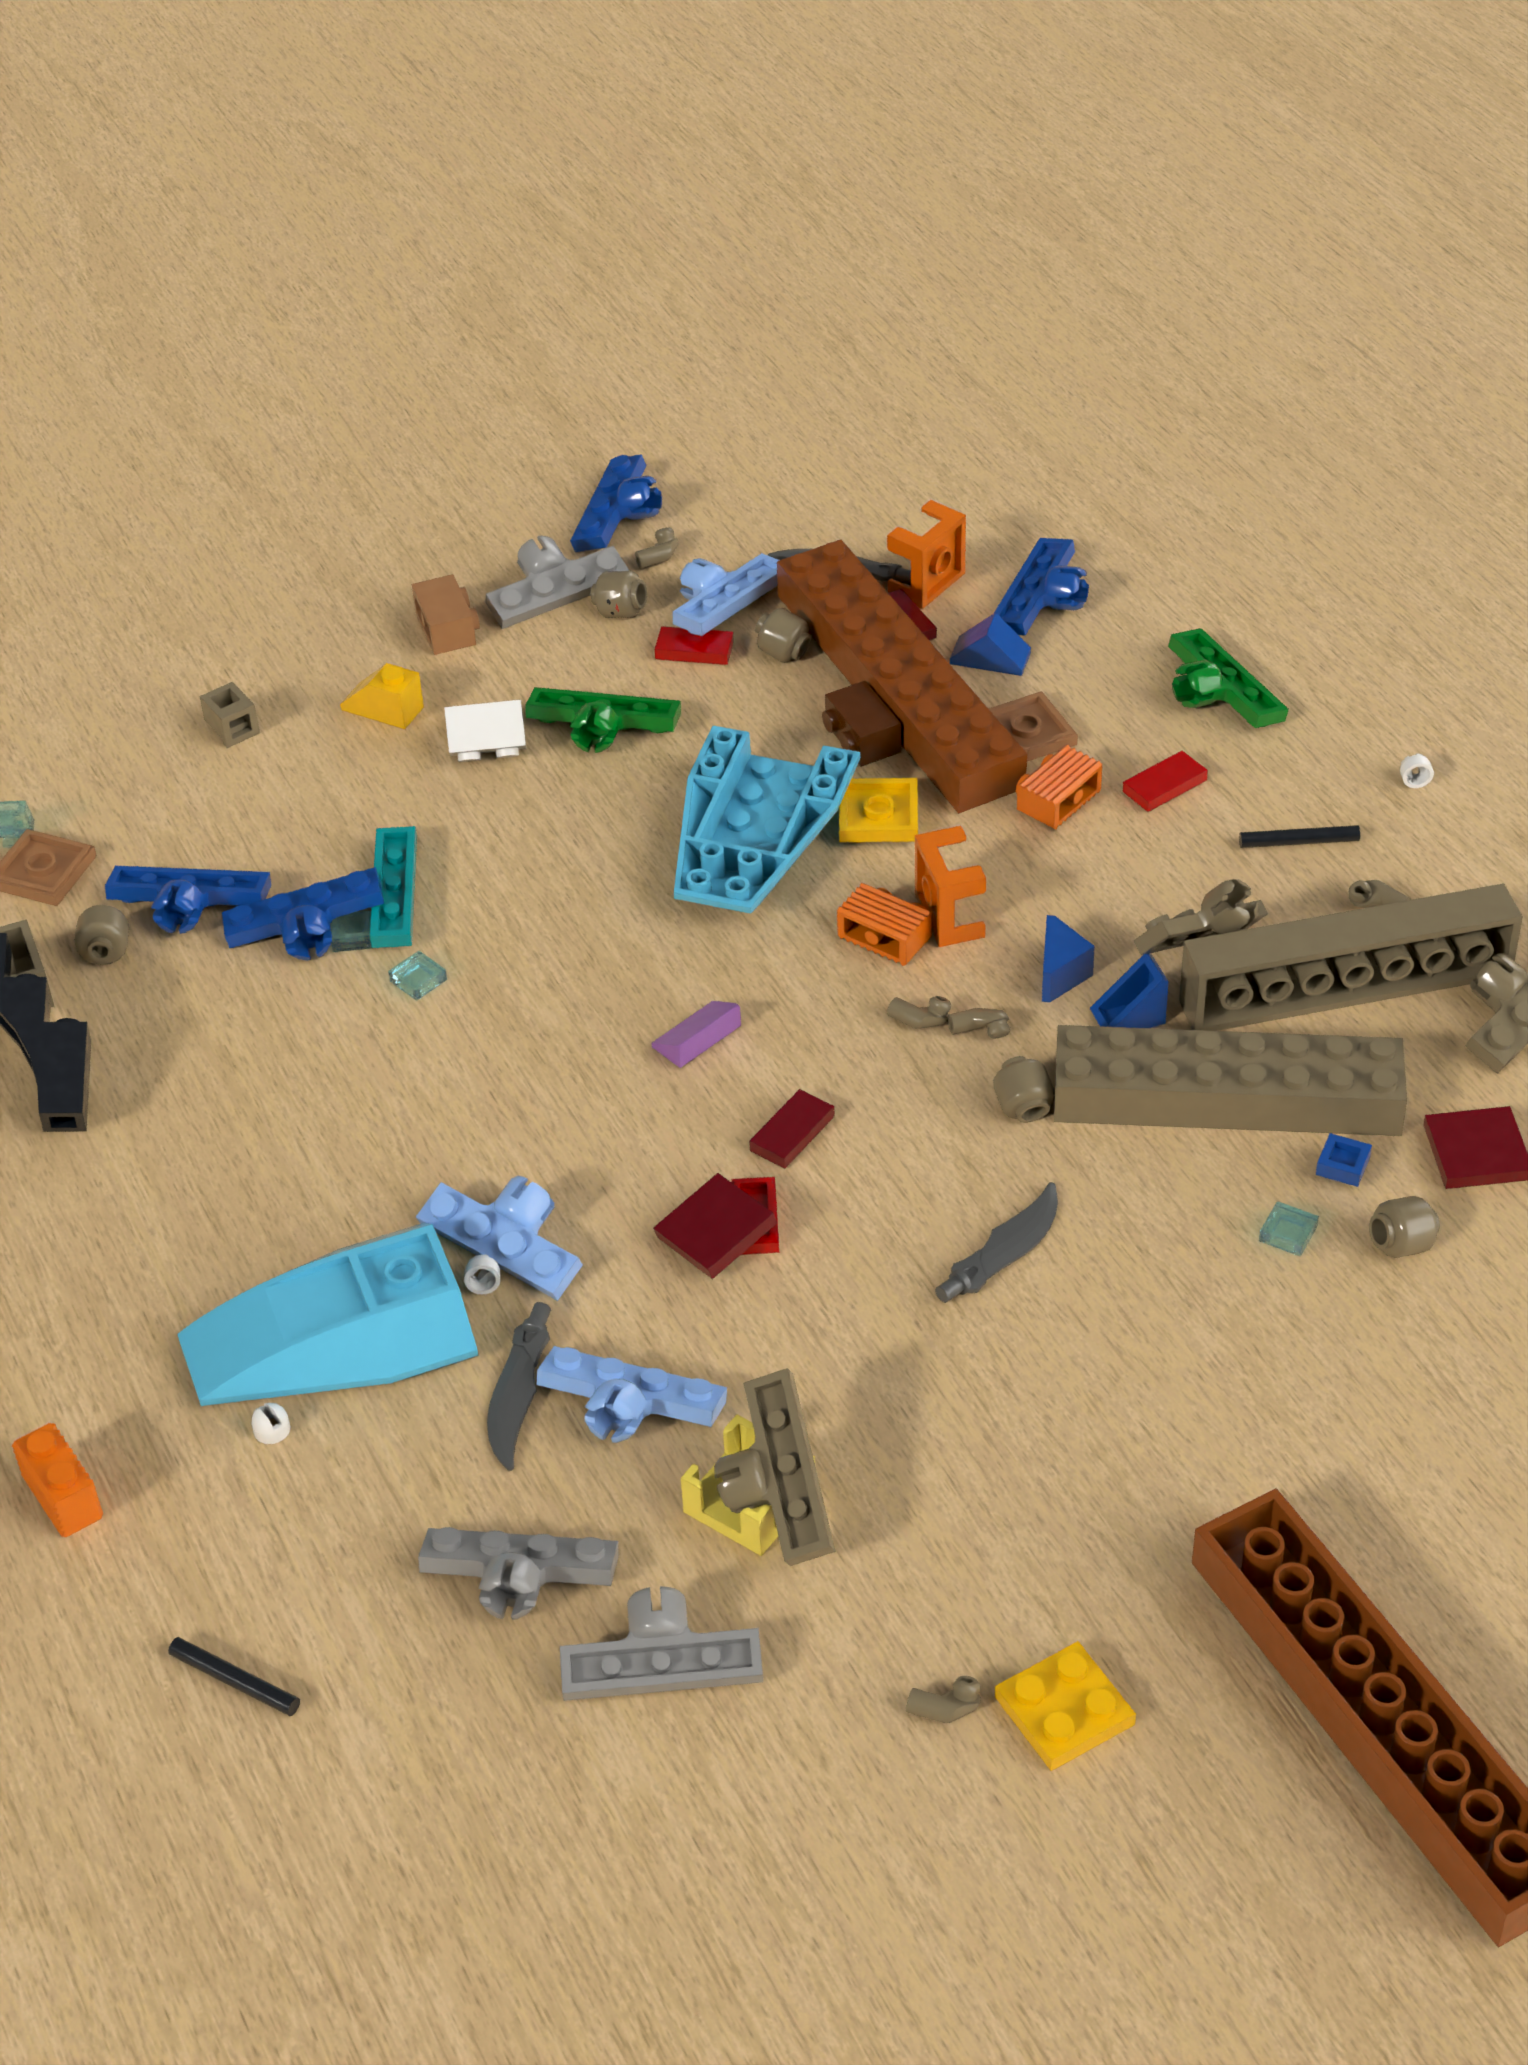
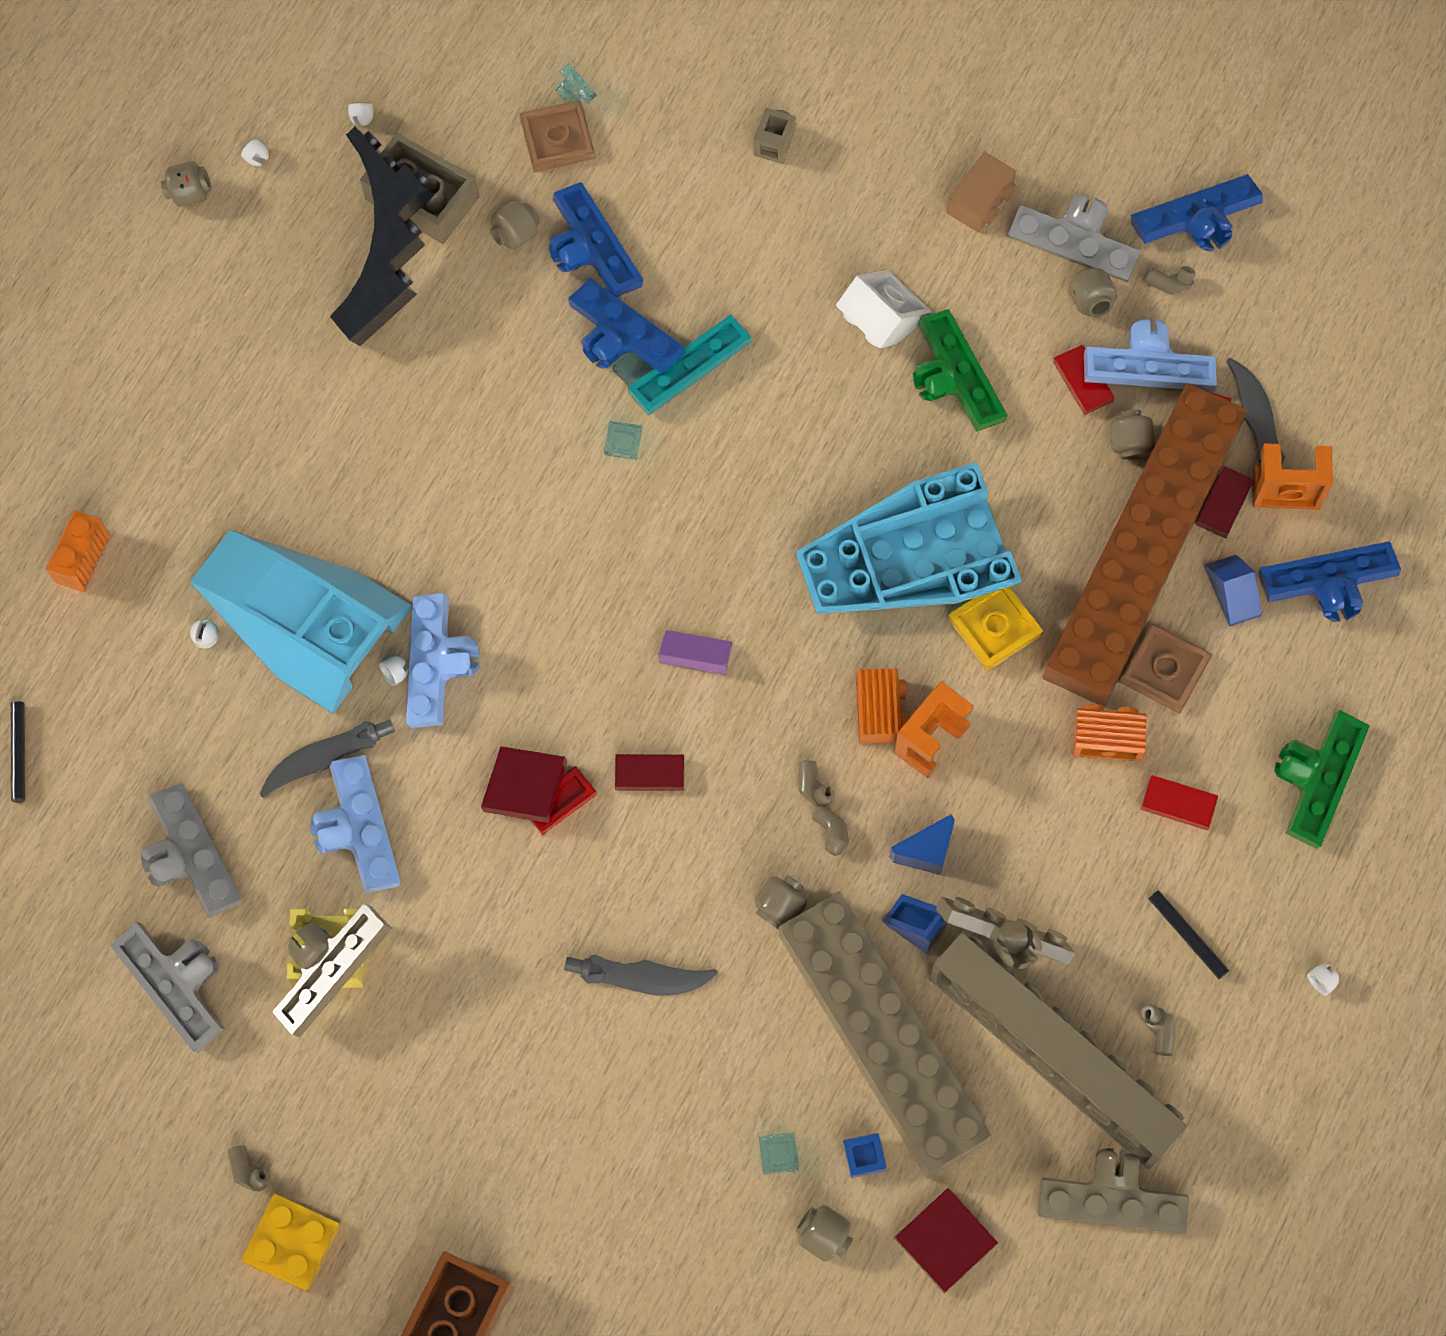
camera: 55 degrees right, 25 degrees up
(387, 696) = (868, 220): yellow slope -> none
(862, 722) = (1076, 554): reddish brown brick -> none

